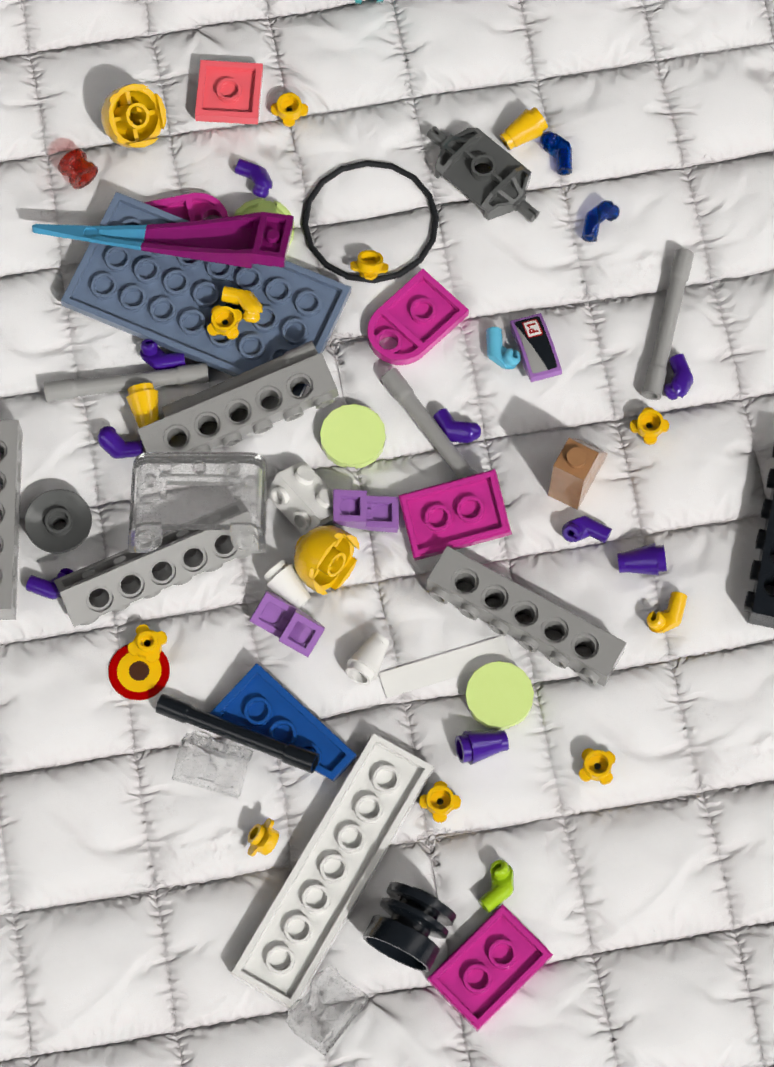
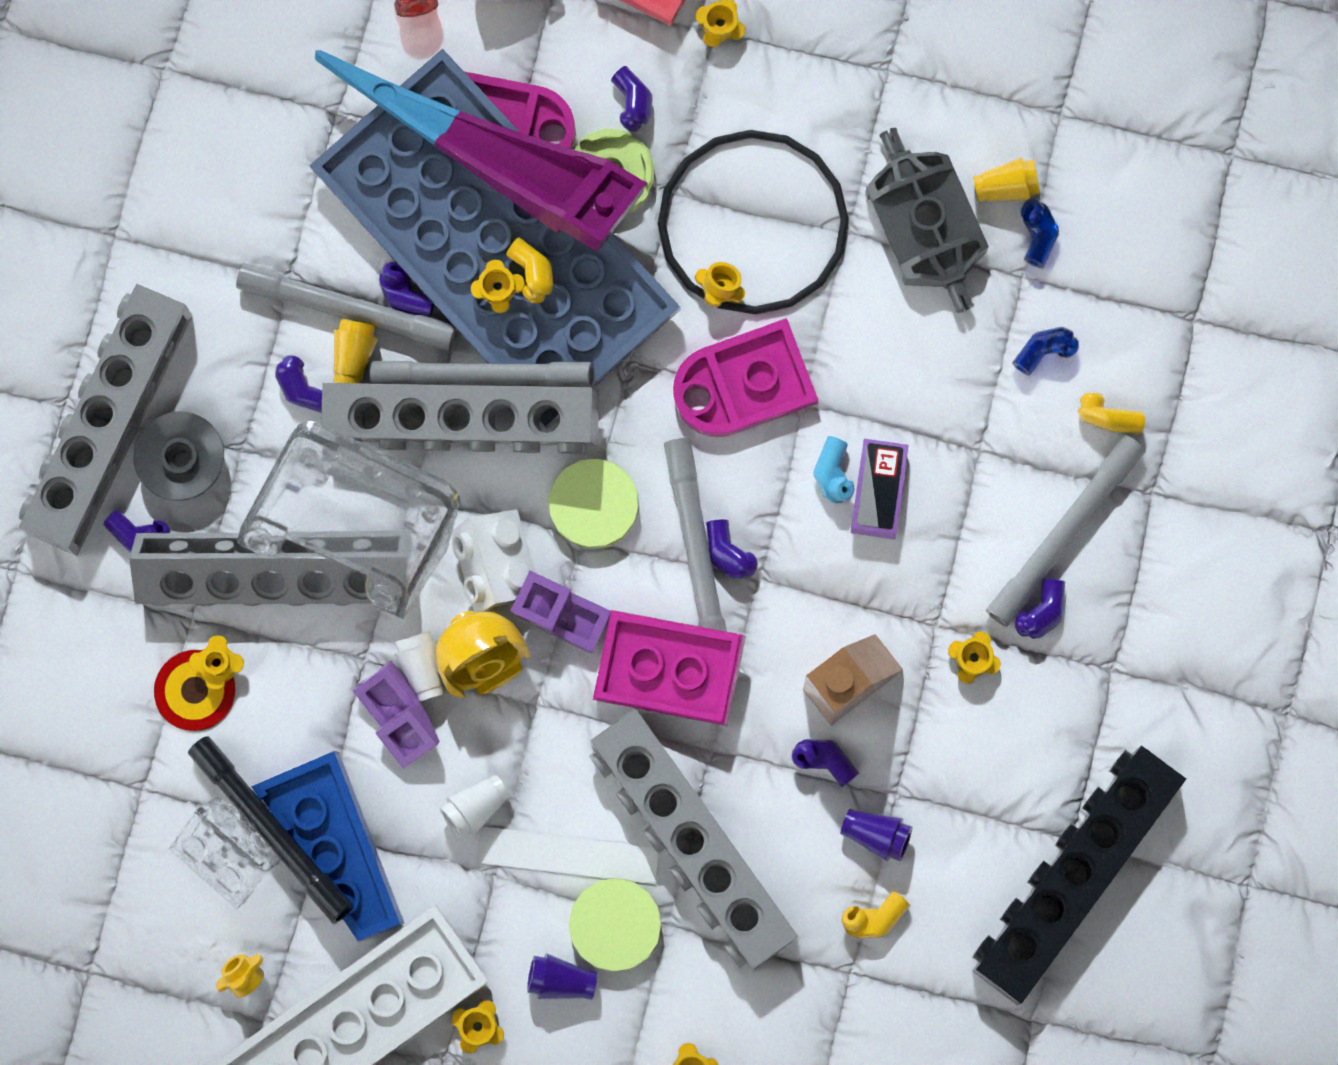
camera: 30 degrees right, 10 degrees up
(650, 244) = (1113, 420): none -> yellow arm

